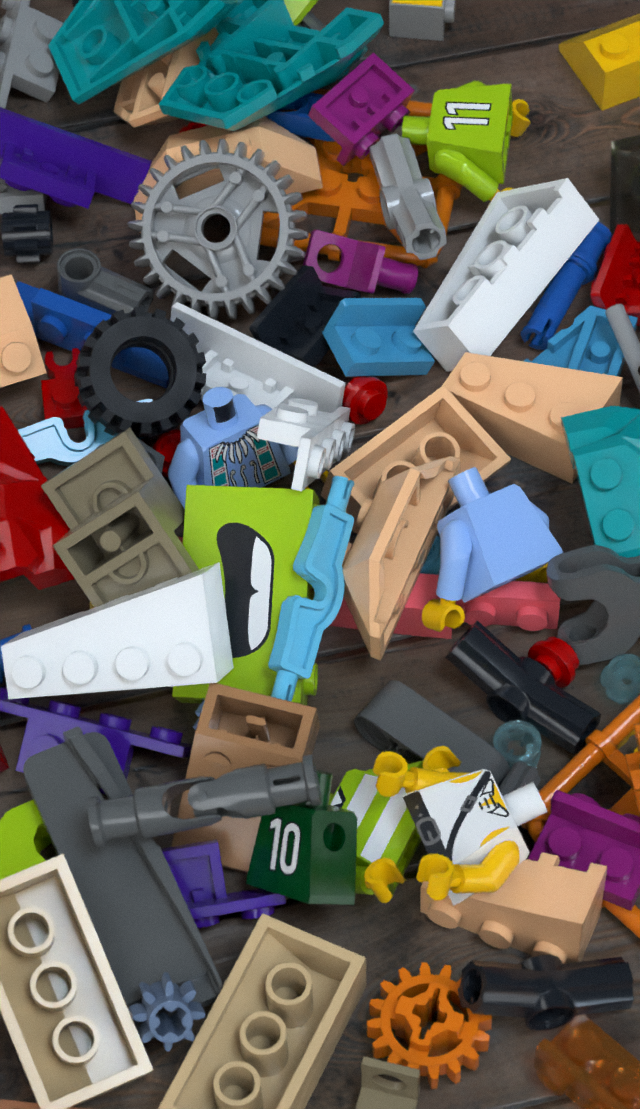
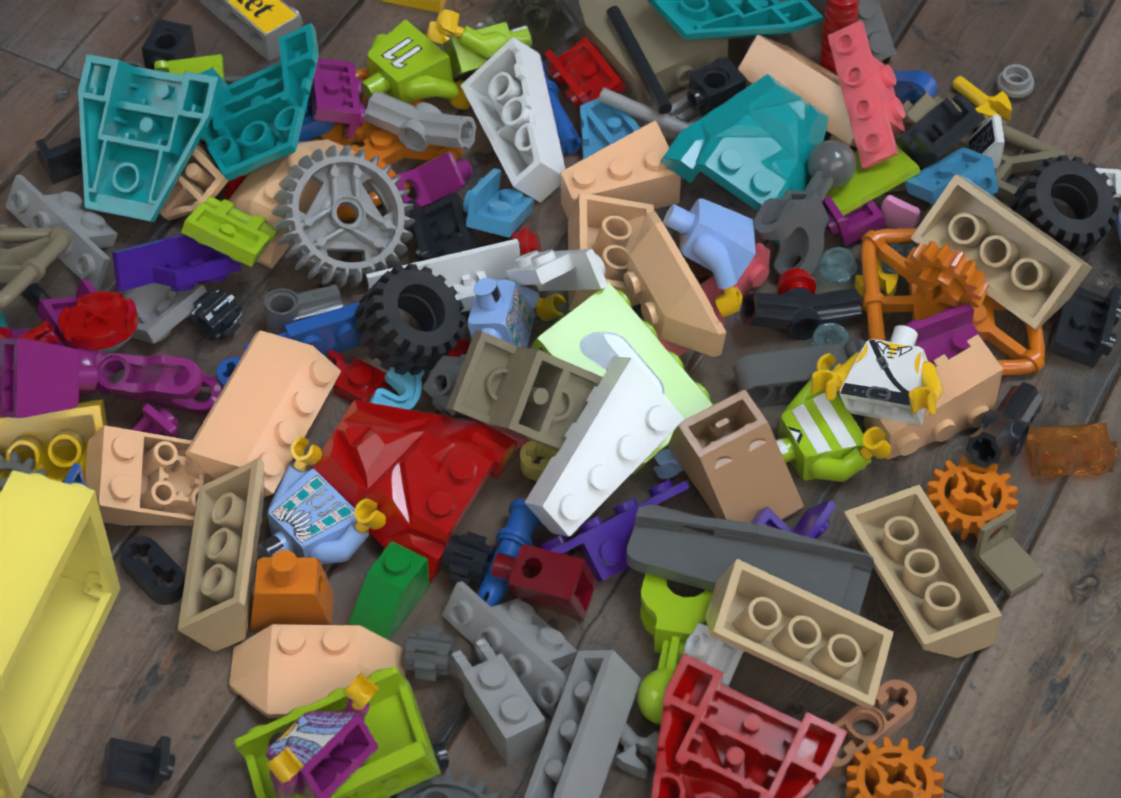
camera: 50 degrees left, 5 degrees down
(95, 163) = (229, 230): none -> lime plate
(171, 997) = (868, 594): sand blue gear -> none
(237, 794) = (778, 452): dark grey piece -> none
(307, 851) = (819, 463): dark green torso -> none
(319, 564) = (655, 322): medium azure piece -> none
(541, 161) = (471, 47): none -> lime torso

